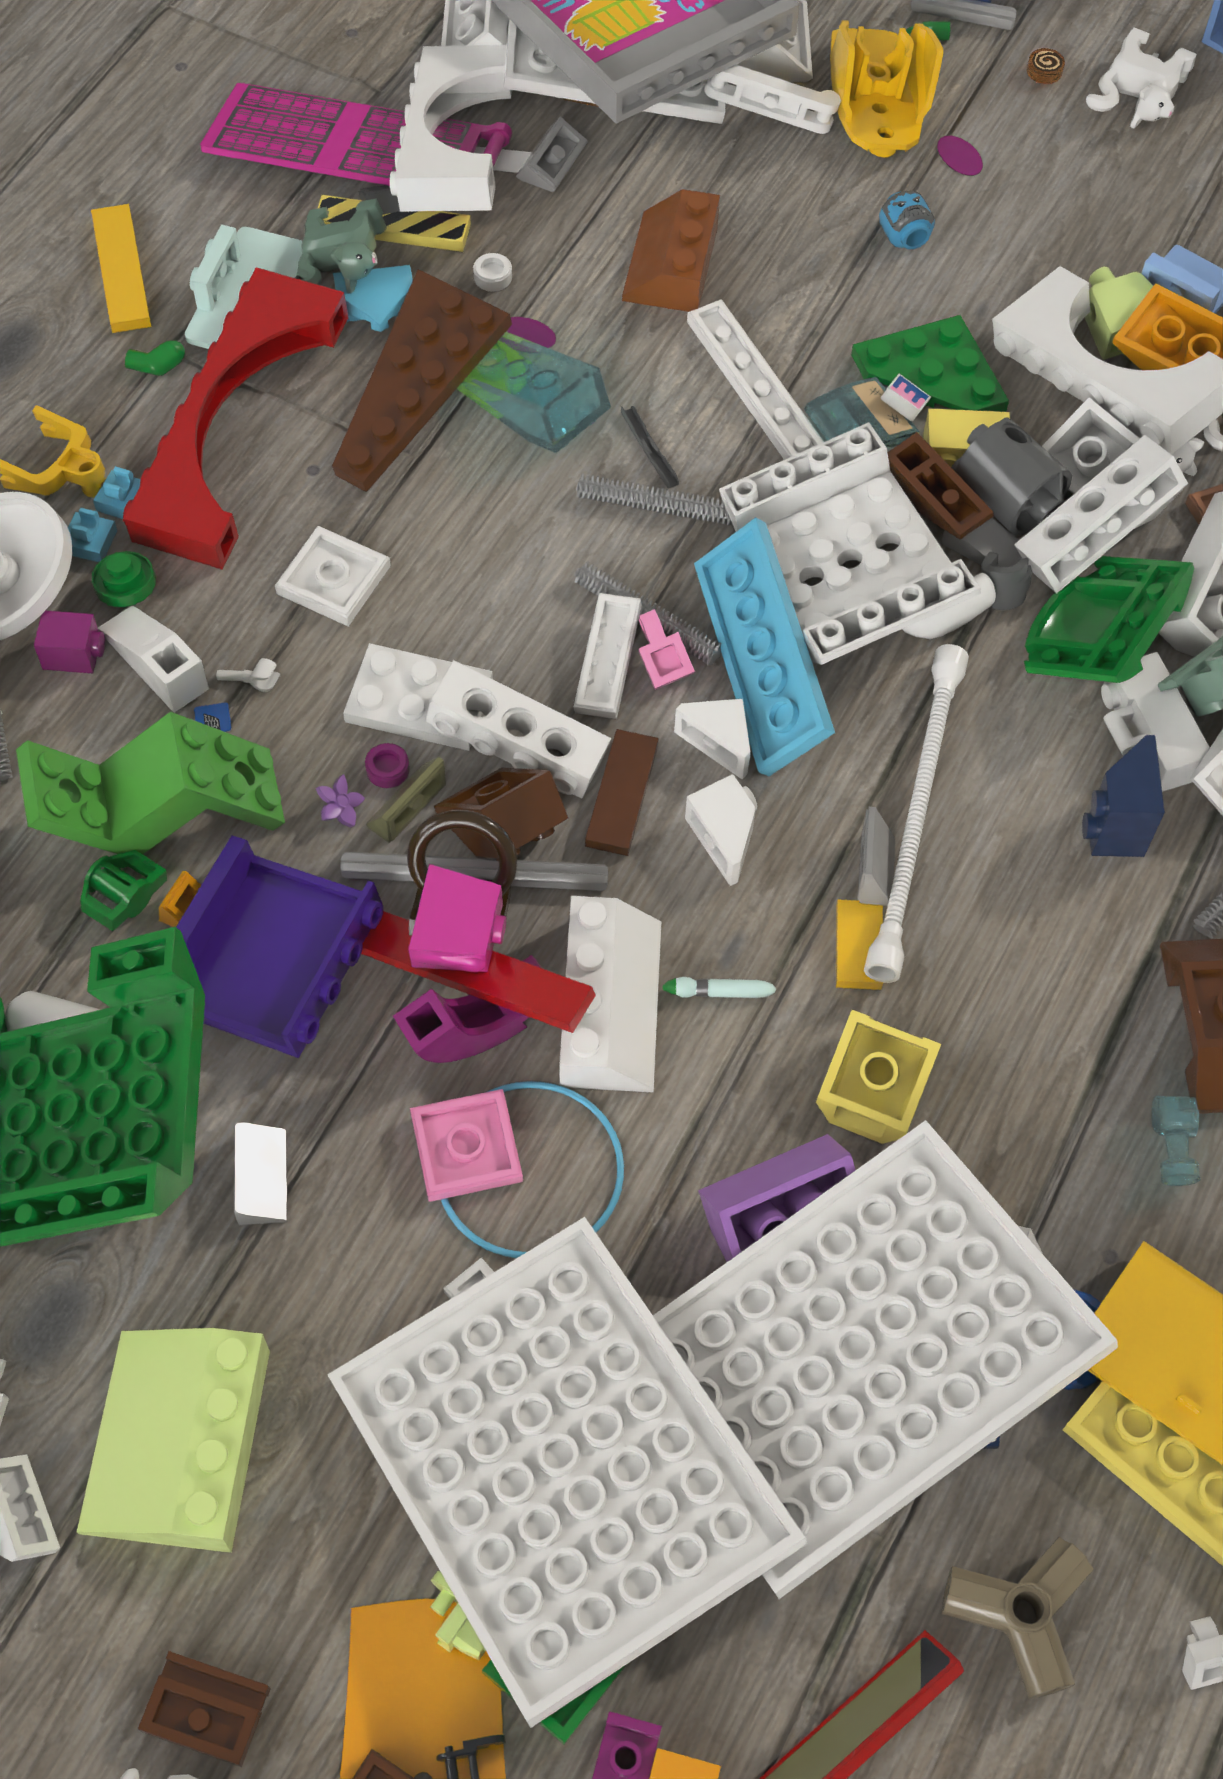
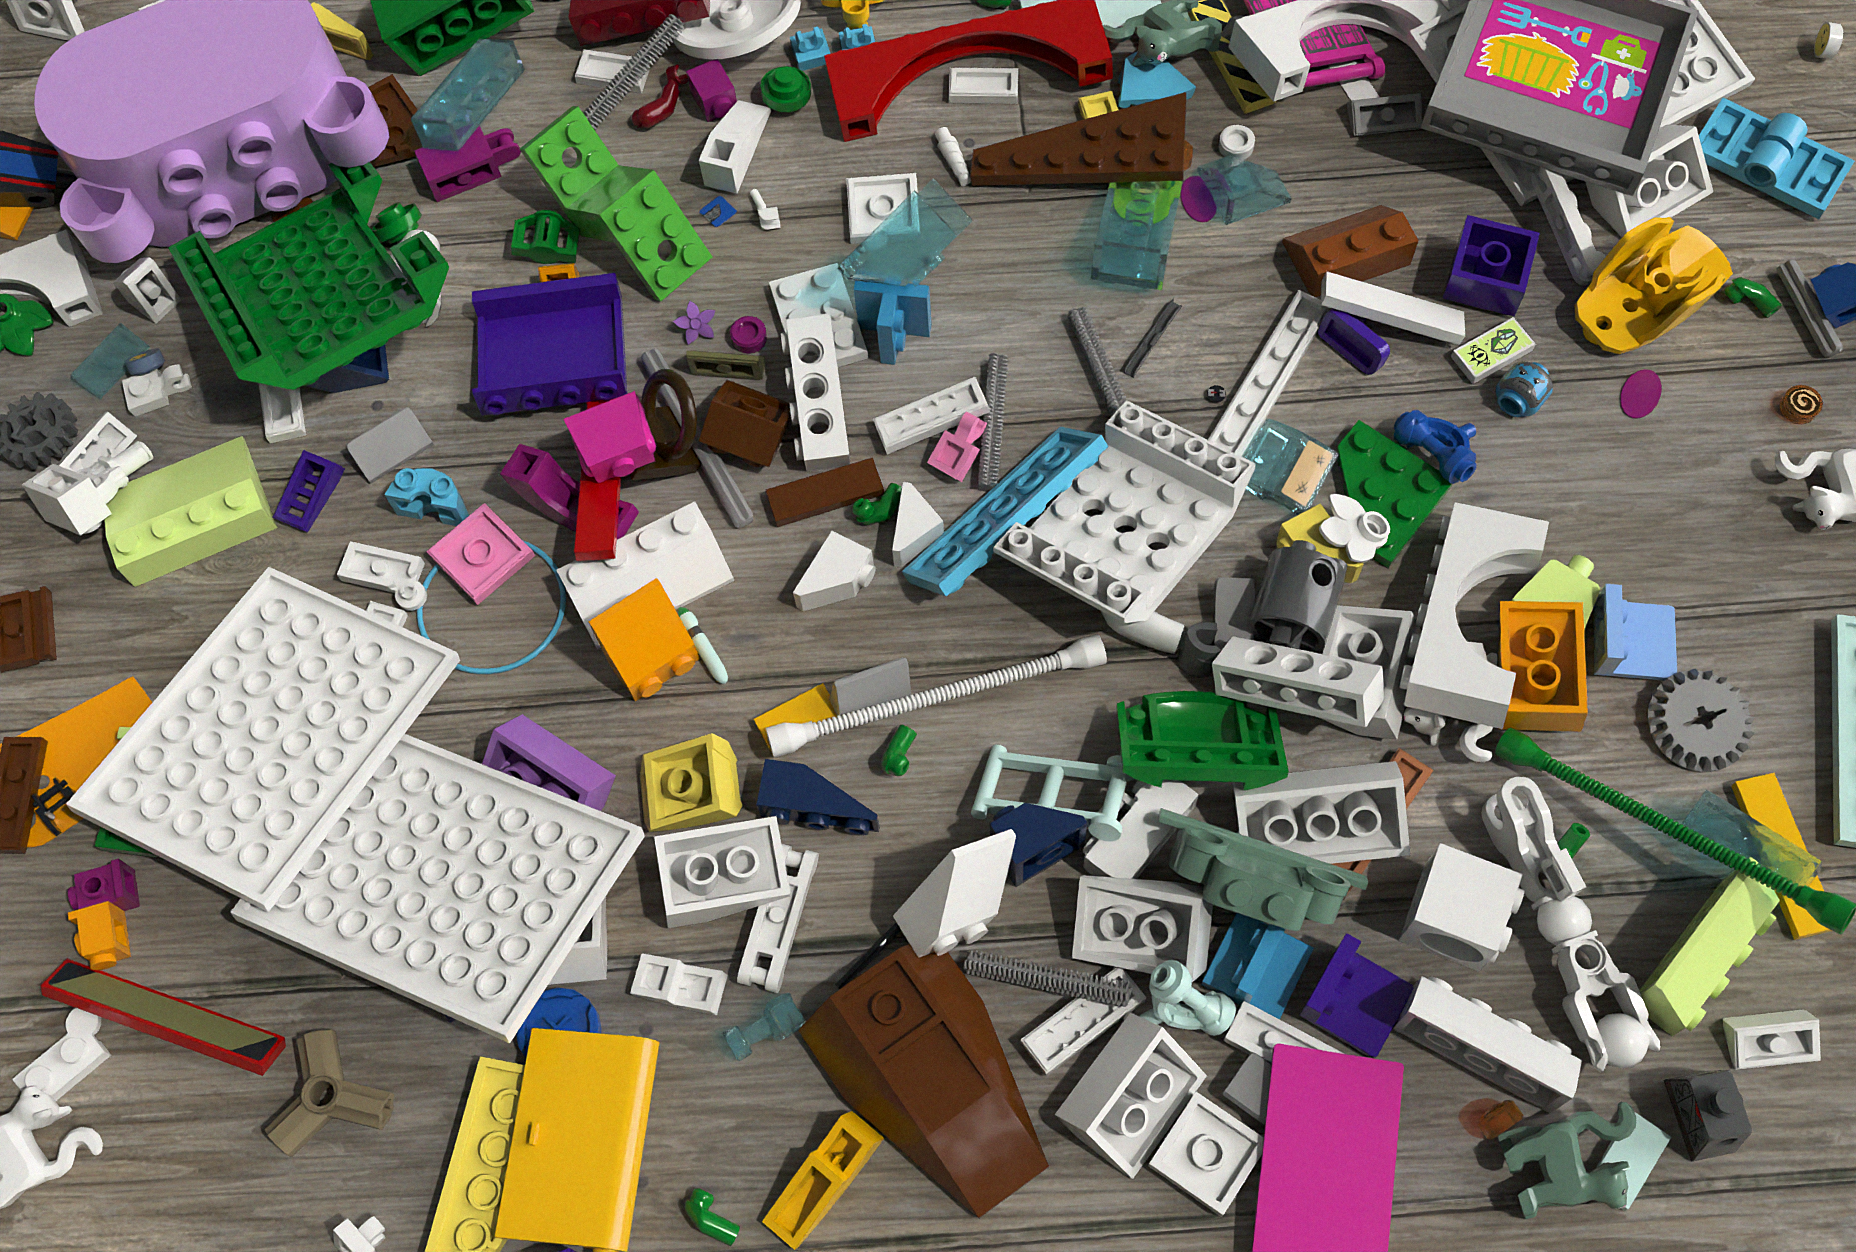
camera: 65 degrees right, 5 degrees up
(44, 698) = (663, 107): none -> dark red arm
(79, 1544) = (80, 497): none -> white brick
(113, 1268) = (281, 413): none -> white tile
(232, 1256) = (301, 475): none -> dark purple slope
(260, 422) = (983, 85): none -> white tile
(321, 487) = (951, 152): none -> white animal
(364, 1147) = (426, 491): none -> medium azure cylinder
(365, 349) = (1097, 104): none -> light yellow tile
(419, 578) = (908, 240): none -> clear light blue windscreen
(420, 1252) = (385, 571): none -> white hinge
(479, 620) = (893, 314): none -> dark azure bracket
(543, 294) = (1242, 188): none -> clear light blue slope
(677, 753) = (878, 511): none -> green arm
(707, 1024) = (645, 640): none -> light orange slope
(745, 431) = (1216, 393): none -> black piece
(765, 255) = (1392, 308): none -> white tile
(772, 301) = (1354, 340): none -> dark purple piece
(776, 168) = (1491, 265): none -> dark purple brick
(850, 221) = (1493, 350): none -> tile
(905, 397) = (1328, 480): tile -> none
(922, 296) = (1433, 434): none -> blue piece
(936, 488) = (1240, 548): reddish brown slope -> none
(951, 974) = (802, 795): none -> dark blue slope
(952, 879) = (894, 757): none -> green arm
(972, 397) = (1354, 528): none -> white plate
(997, 1088) = (720, 870): none -> white slope
(1066, 1068) = (777, 924): none -> white plate
(1084, 1196) = (679, 984): none -> white slope
(1092, 702) = (1100, 825): none -> light aqua piece
(1137, 996) = (868, 956): none -> black piece
(1156, 895) = (958, 896): none -> white slope

